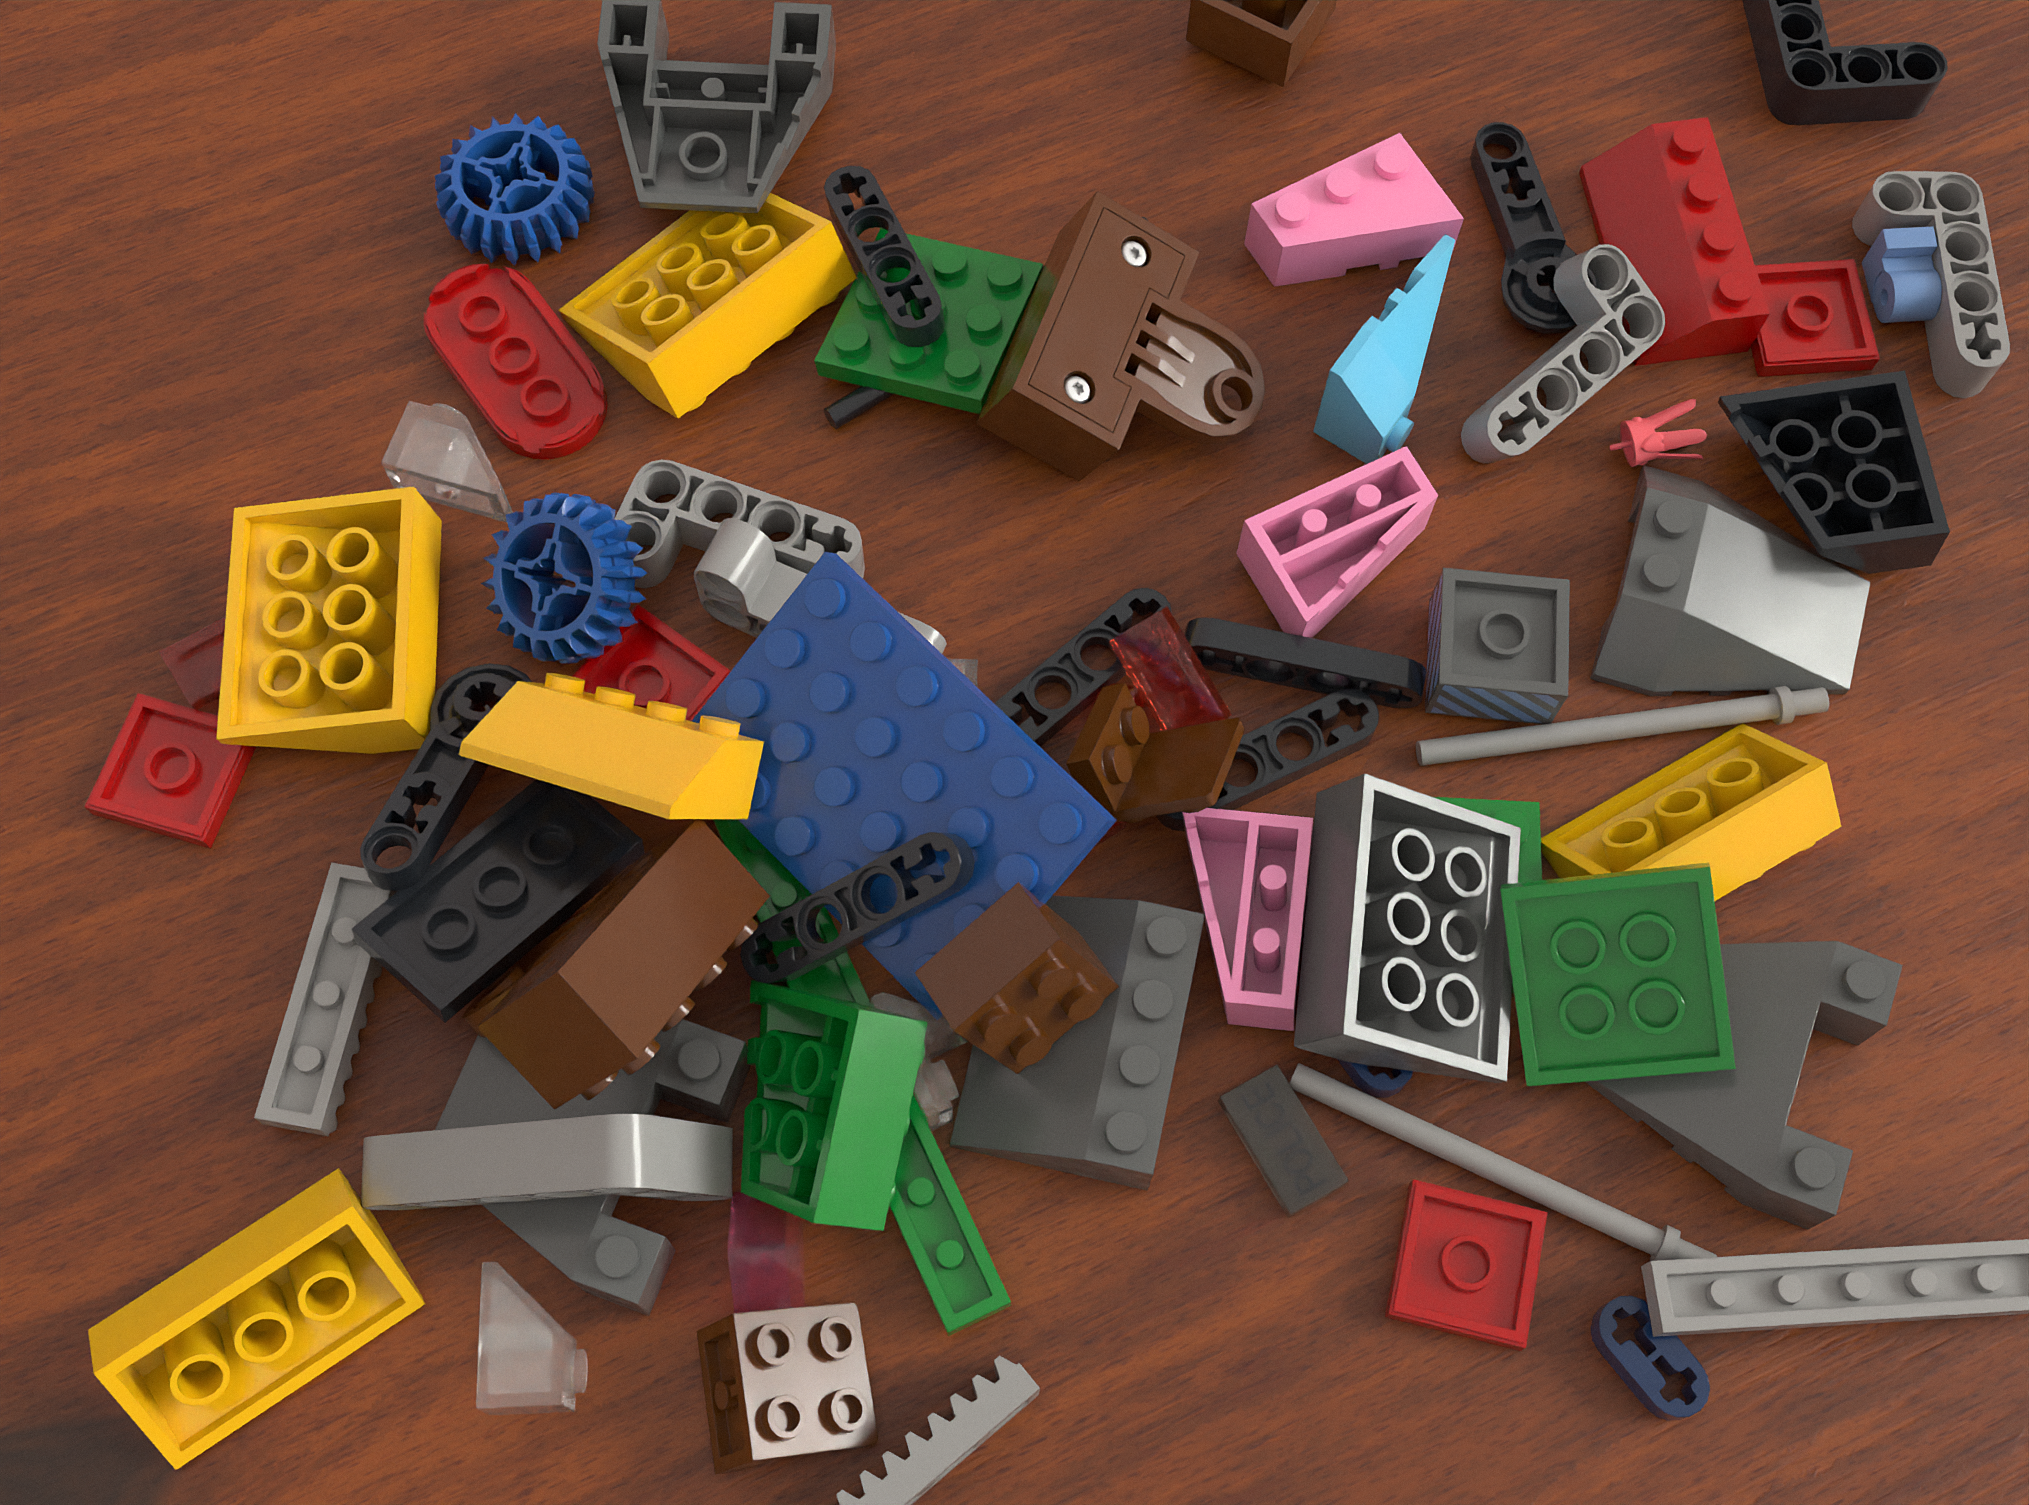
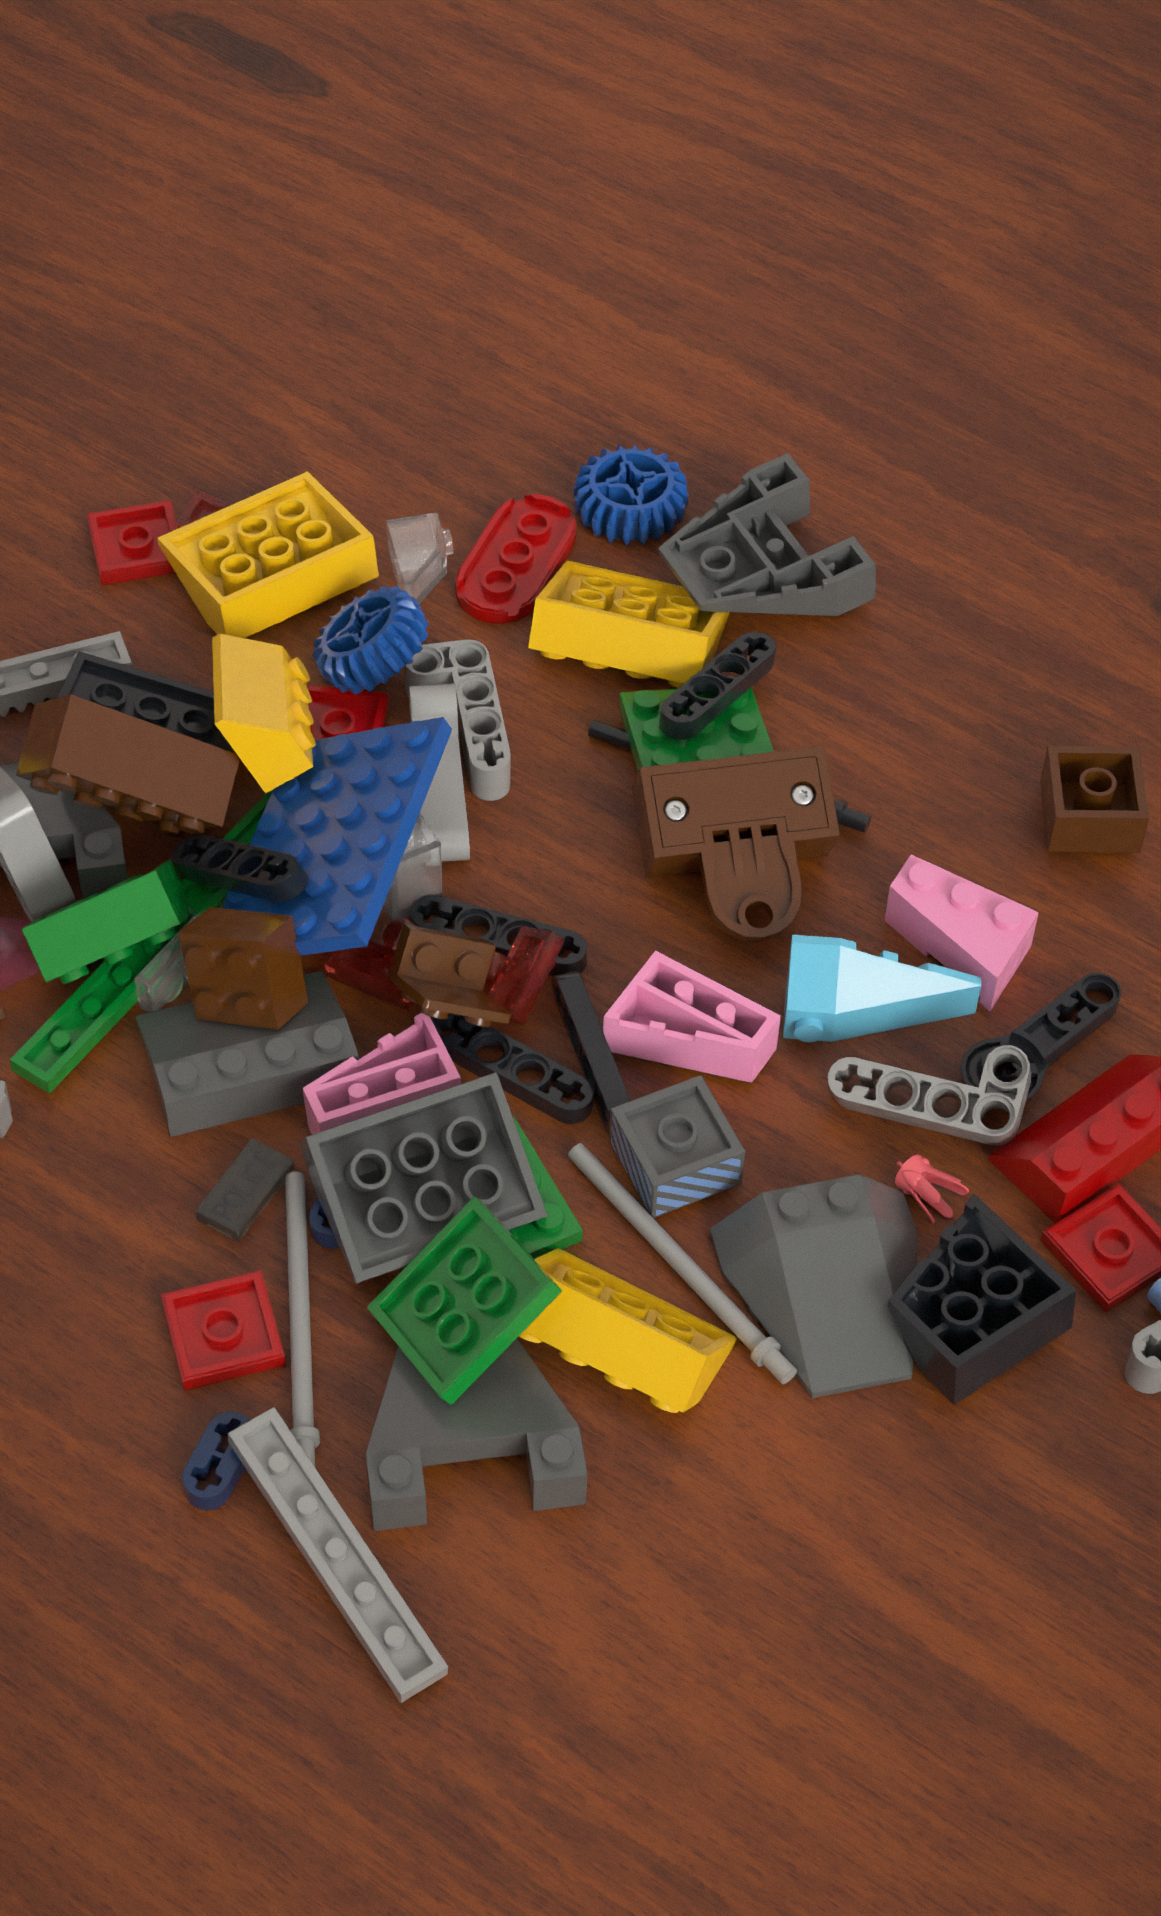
camera: 60 degrees right, 15 degrees down
(437, 774) = (195, 647): black beam -> none

